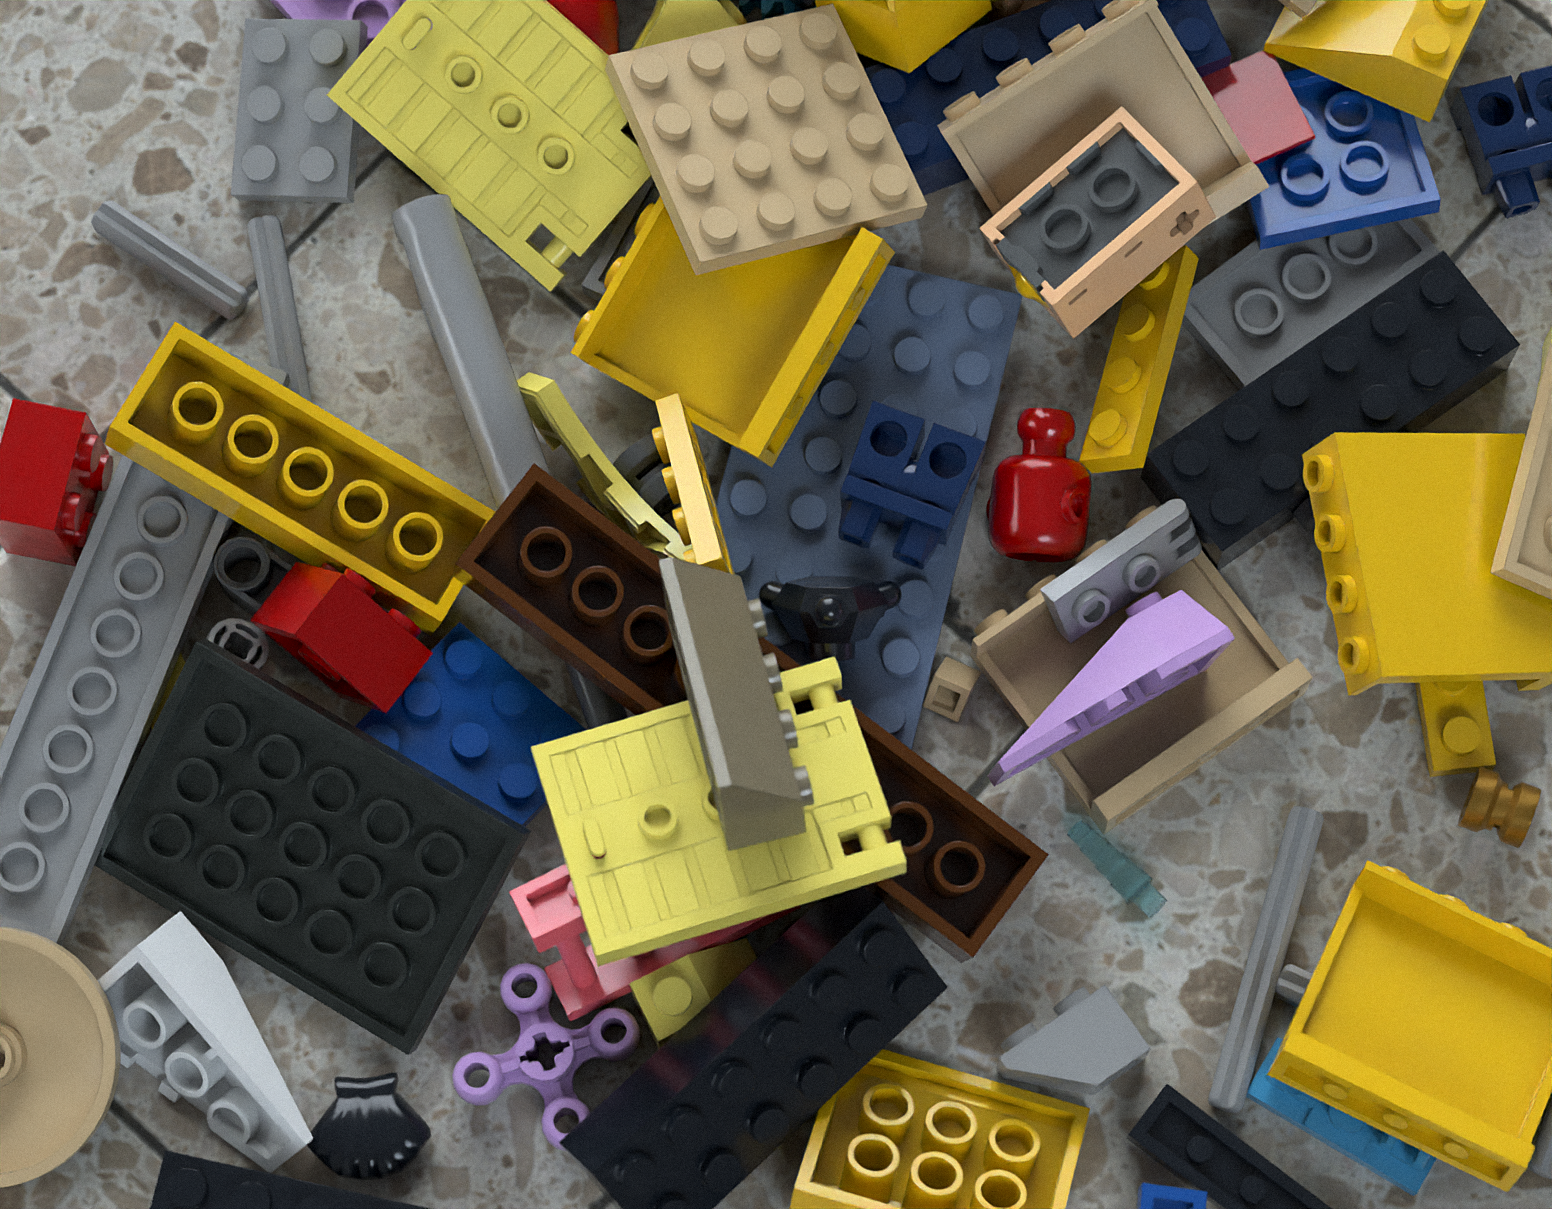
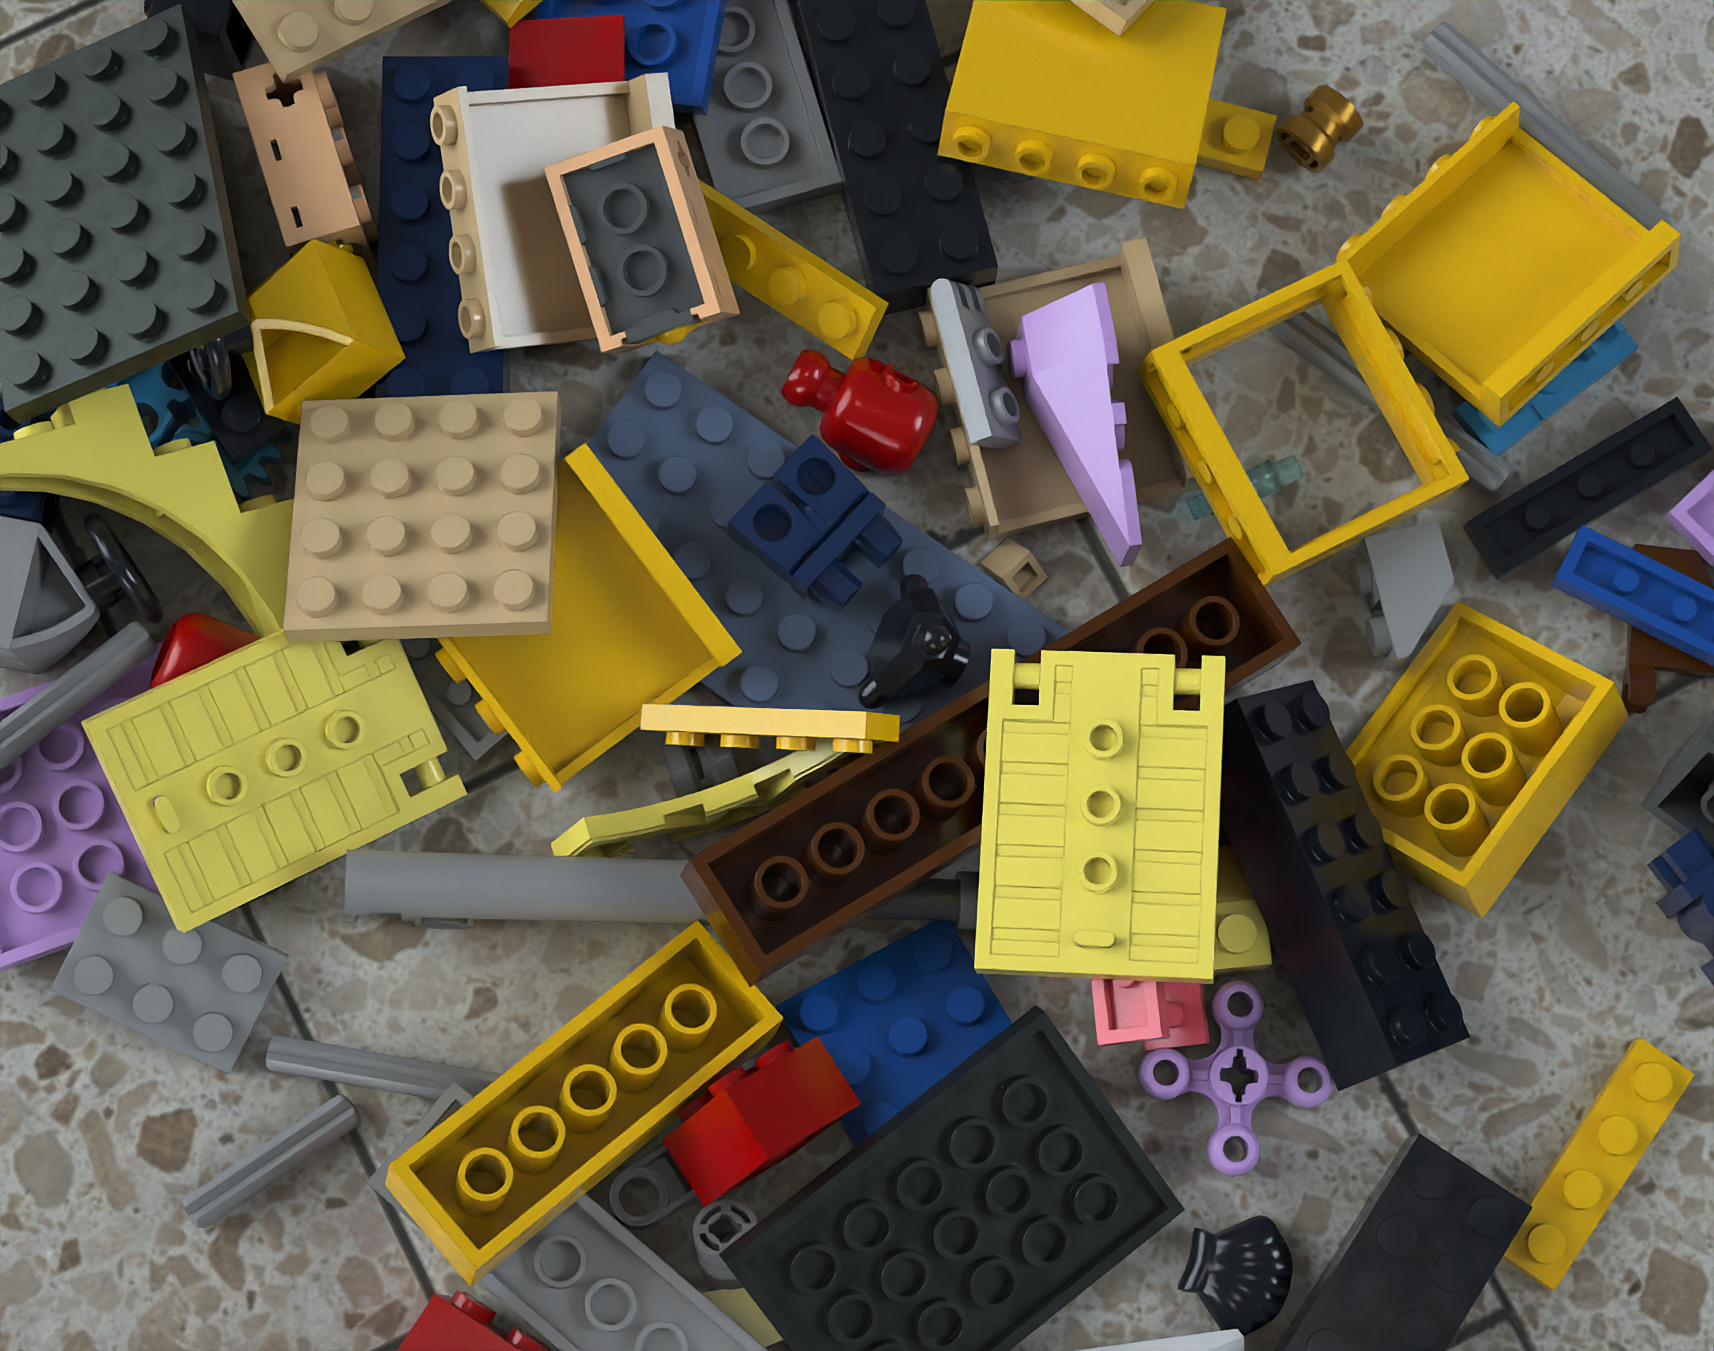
camera: 75 degrees left, 5 degrees up
(734, 704) = (1022, 755): dark tan slope -> none
(1289, 934) = (1214, 462): none -> yellow window

